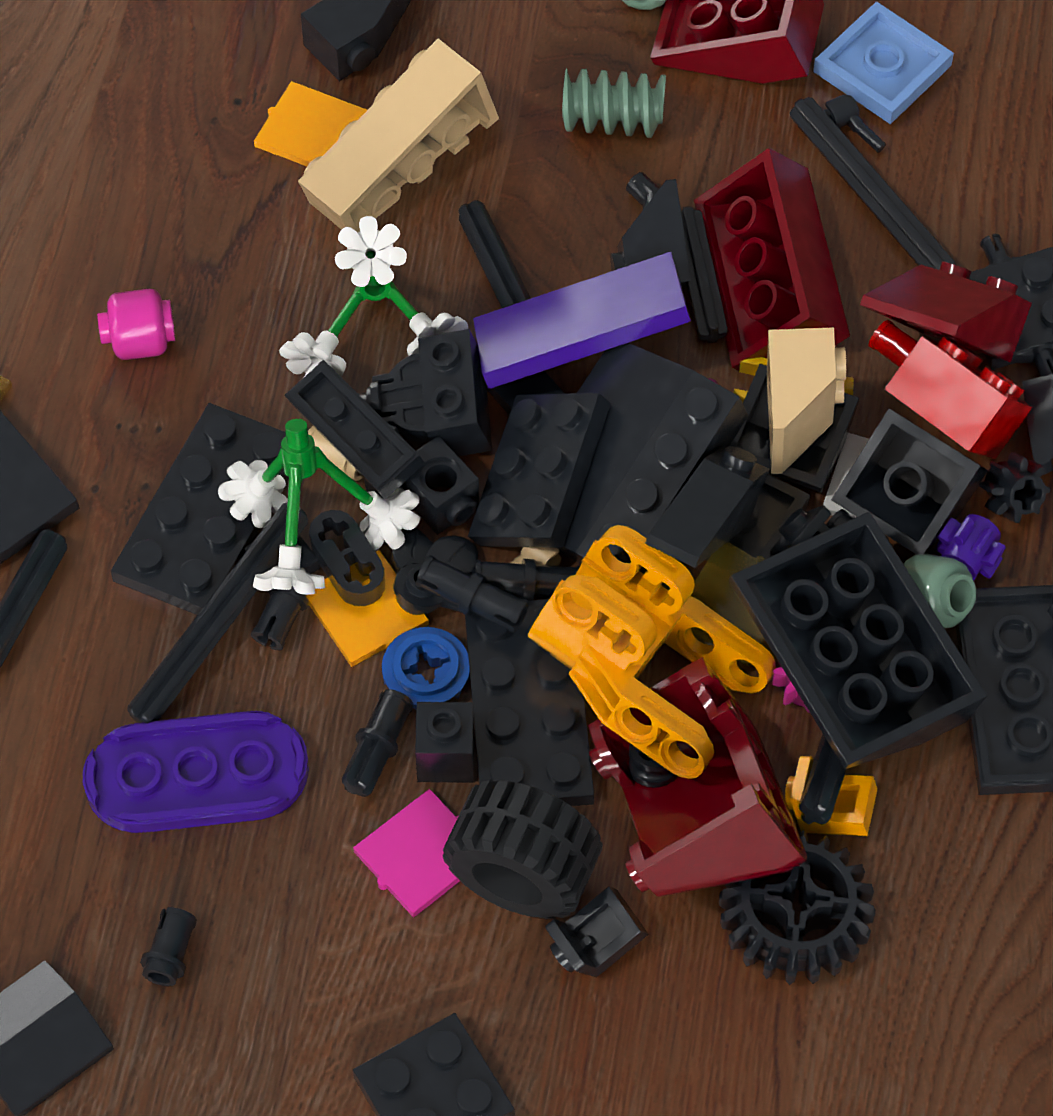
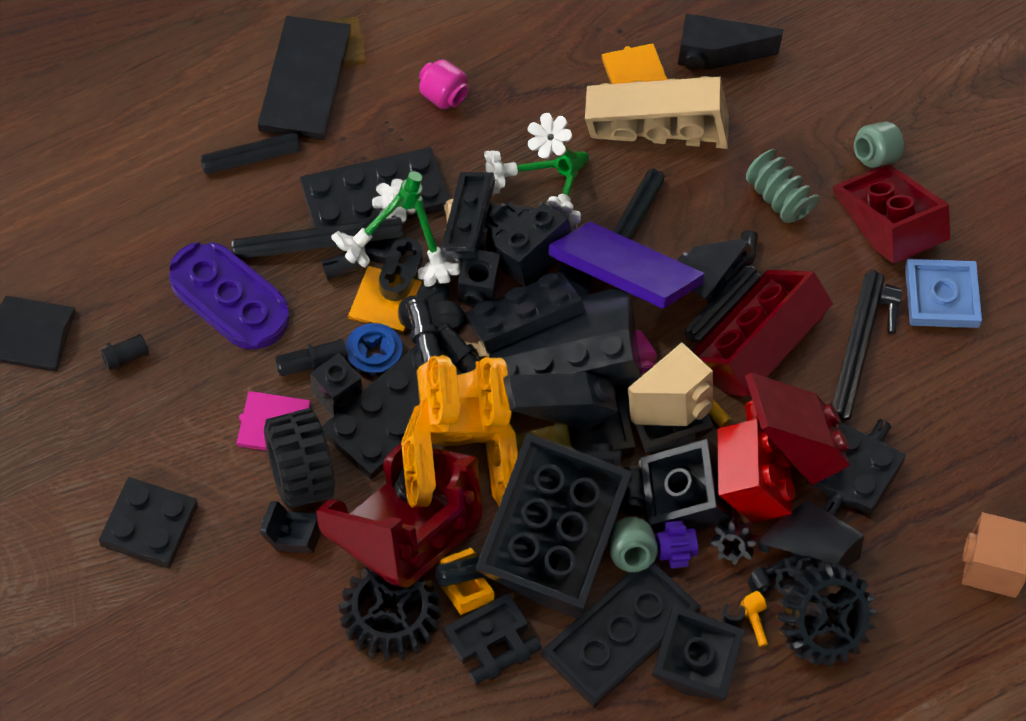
camera: 45 degrees right, 0 degrees up
(906, 823) = (487, 628): none -> black plate

